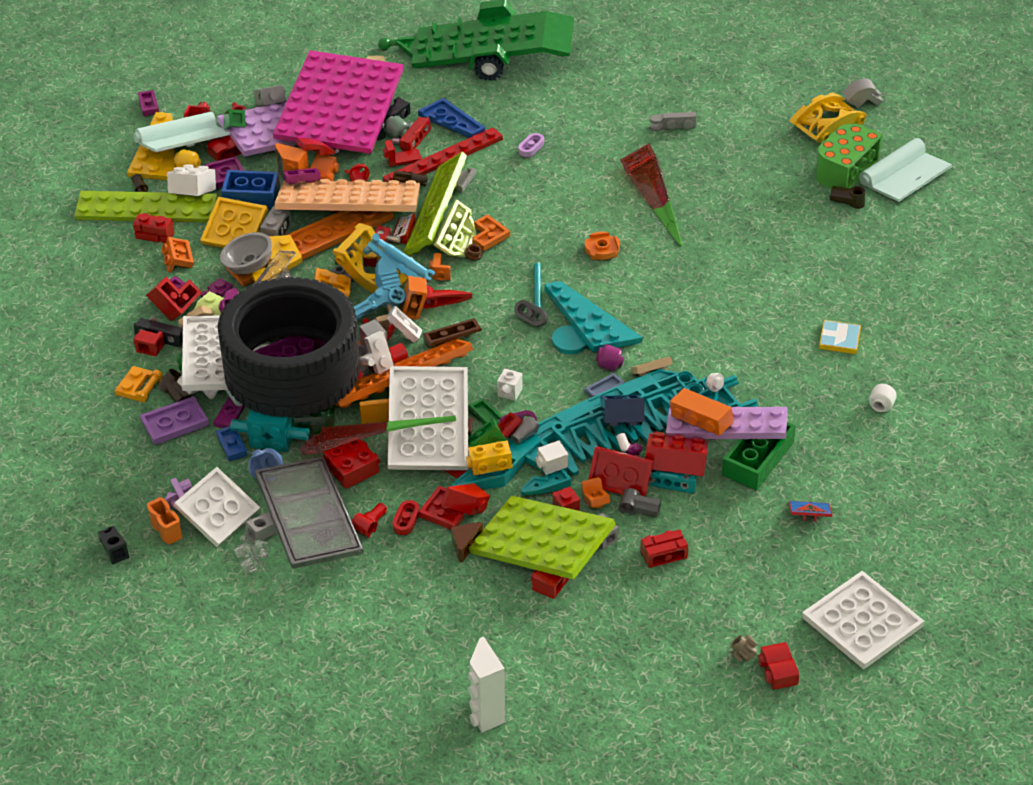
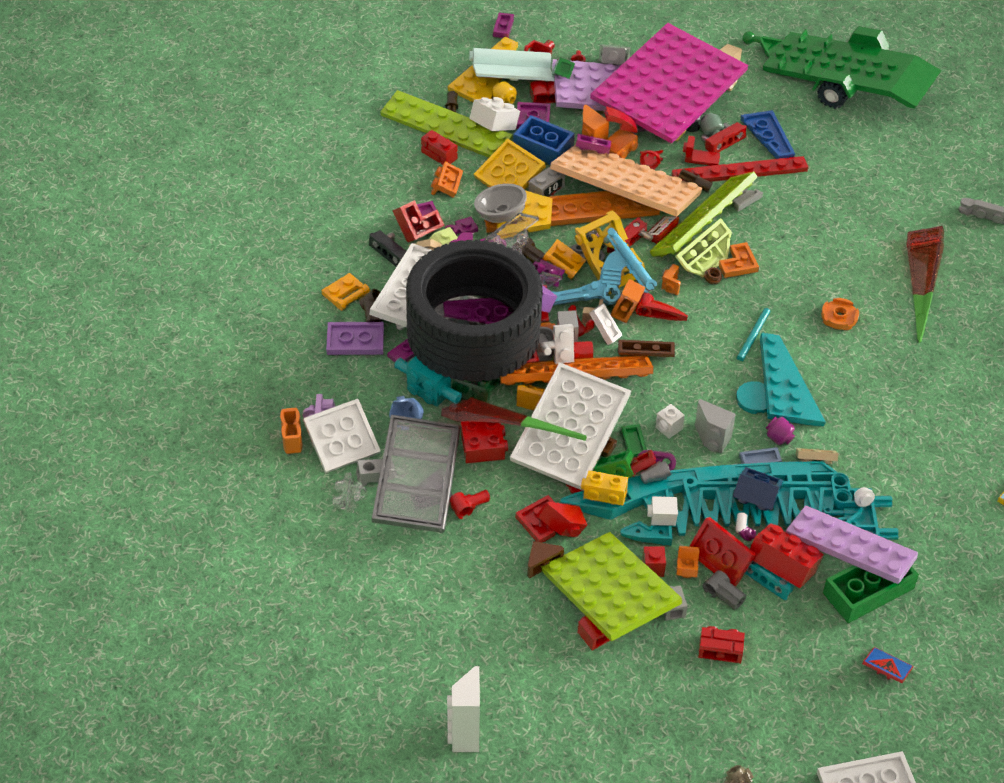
camera: 25 degrees right, 5 degrees up
(113, 544) = (238, 435): black leg -> none
(149, 342) = (374, 256): red brick -> none
(231, 443) = (390, 380): blue plate -> none
(397, 109) = (723, 109): black leg -> none
(404, 518) = (500, 513): red plate -> none
(531, 145) = (830, 186): lavender plate -> none
(532, 314) = (733, 358): dark grey plate -> none
(551, 373) = (714, 425): none -> light grey slope
(701, 411) = (828, 524): orange brick -> none

